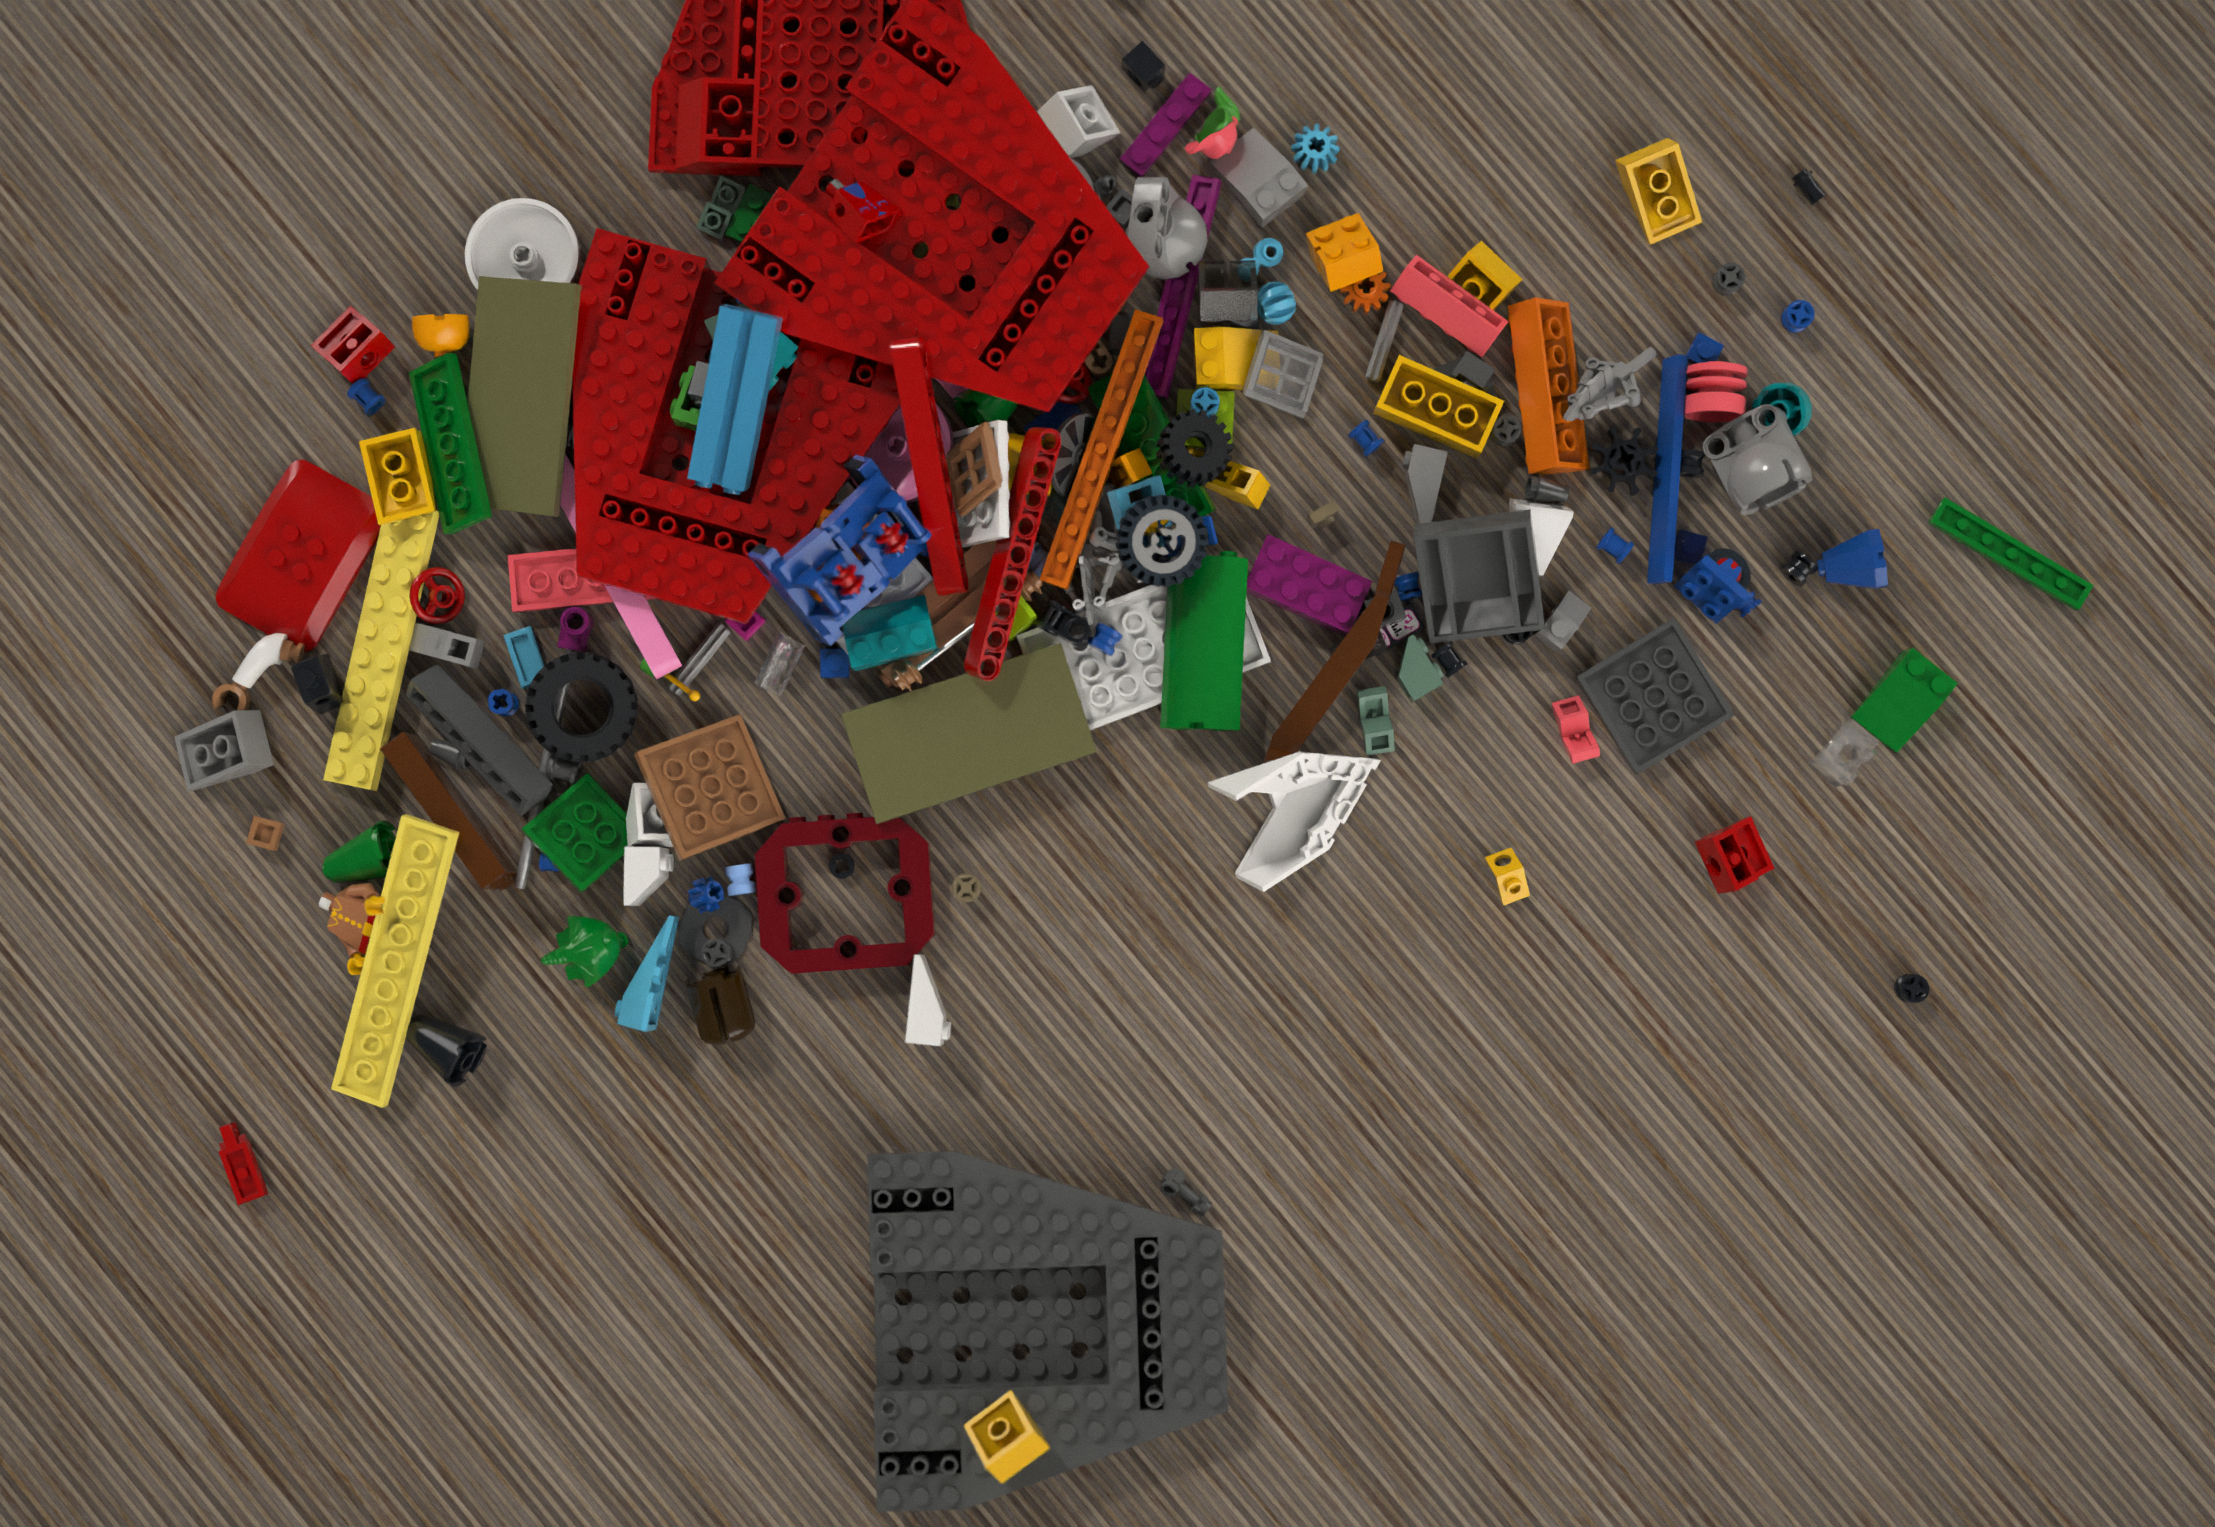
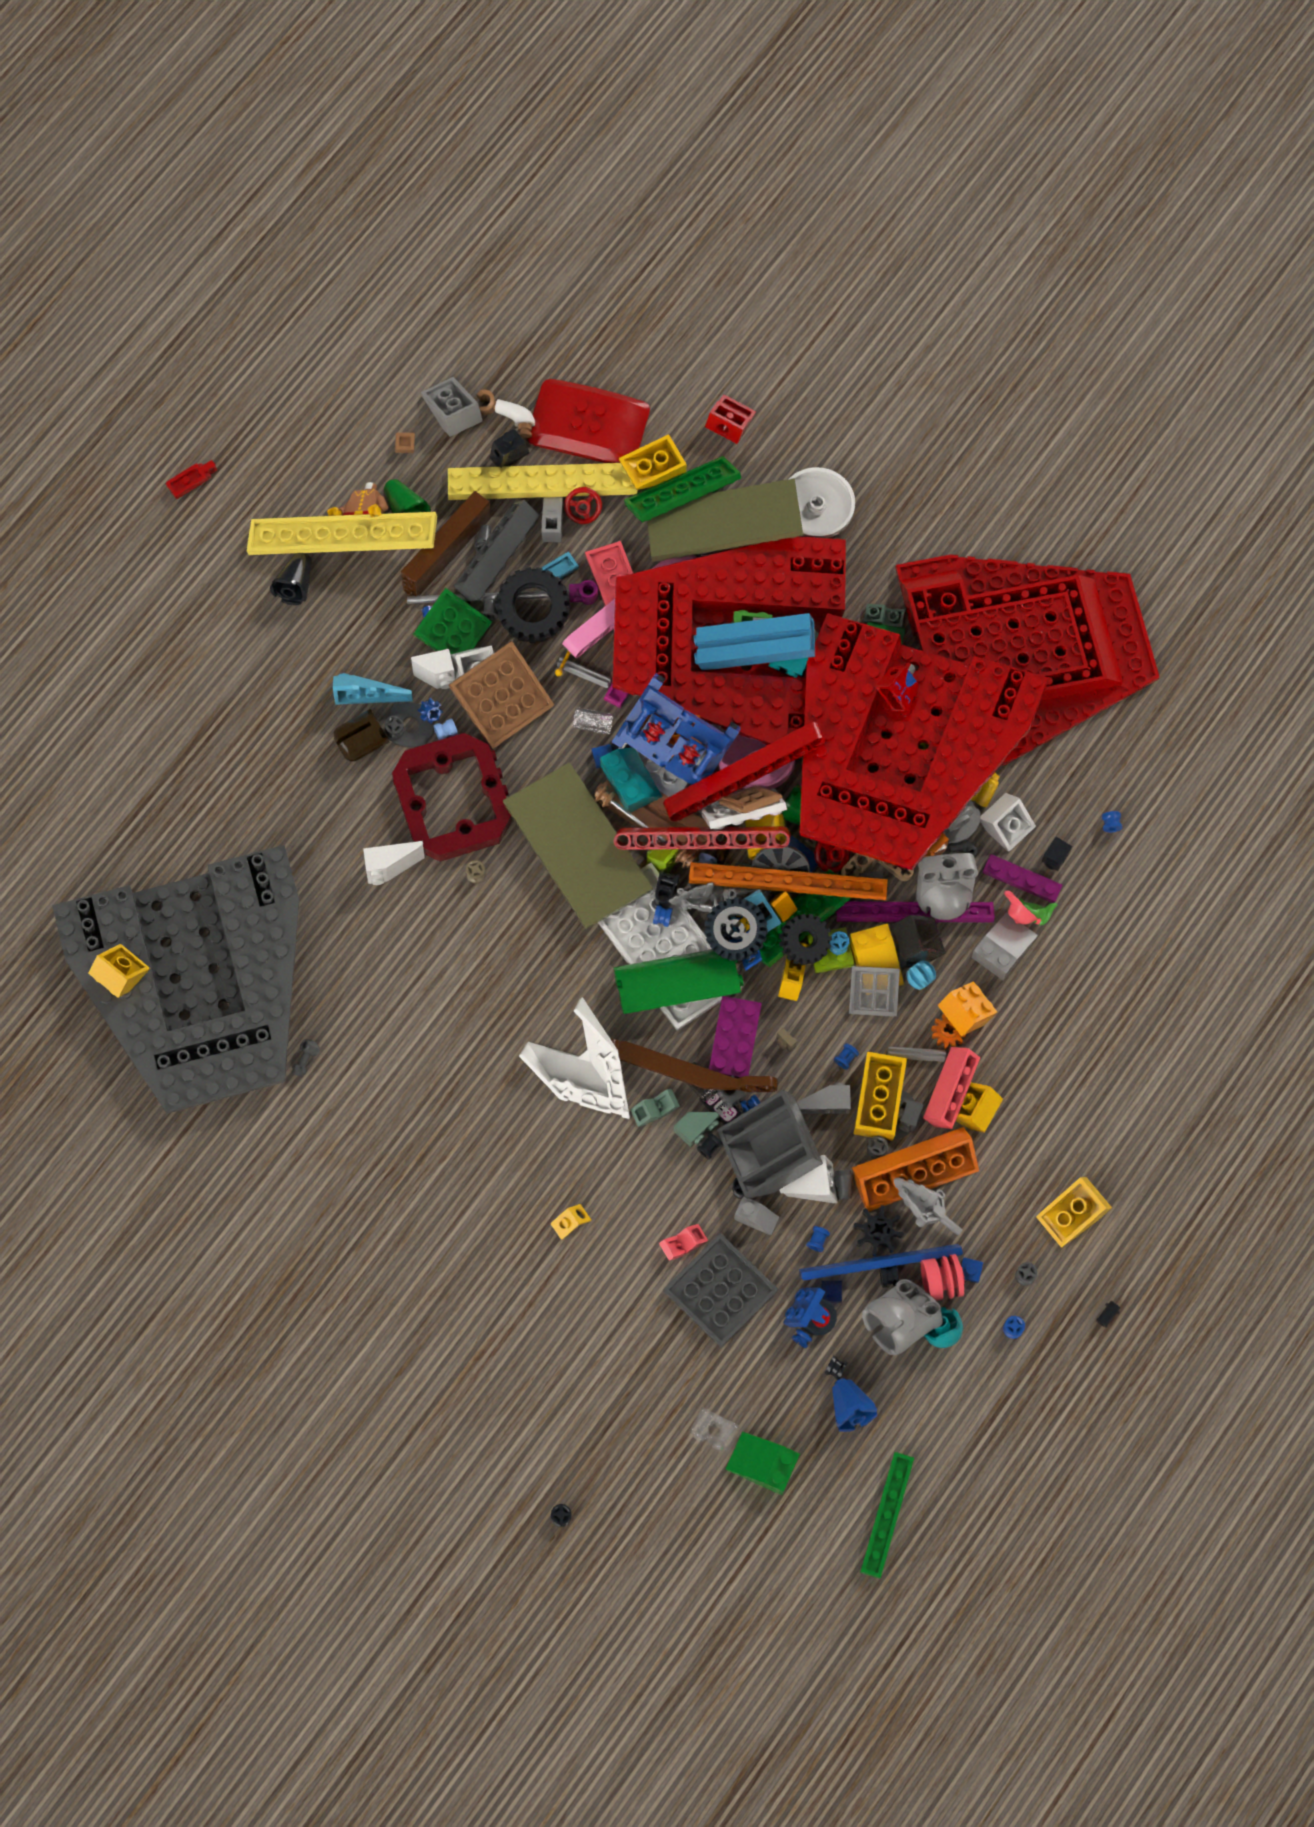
camera: 70 degrees right, 15 degrees down
(366, 396) = (700, 434): blue bush -> none
(441, 333) = (752, 467): light orange cylinder -> none
(495, 706) = (524, 561): blue bush -> none
(589, 946) = (379, 648): green piece -> none
(833, 868) = (467, 787): black bush -> none
(1261, 257) = (949, 958): medium azure plate -> none
(1312, 157) = (1034, 984): medium azure gear -> none
(1734, 855) = (619, 1361): red brick -> none

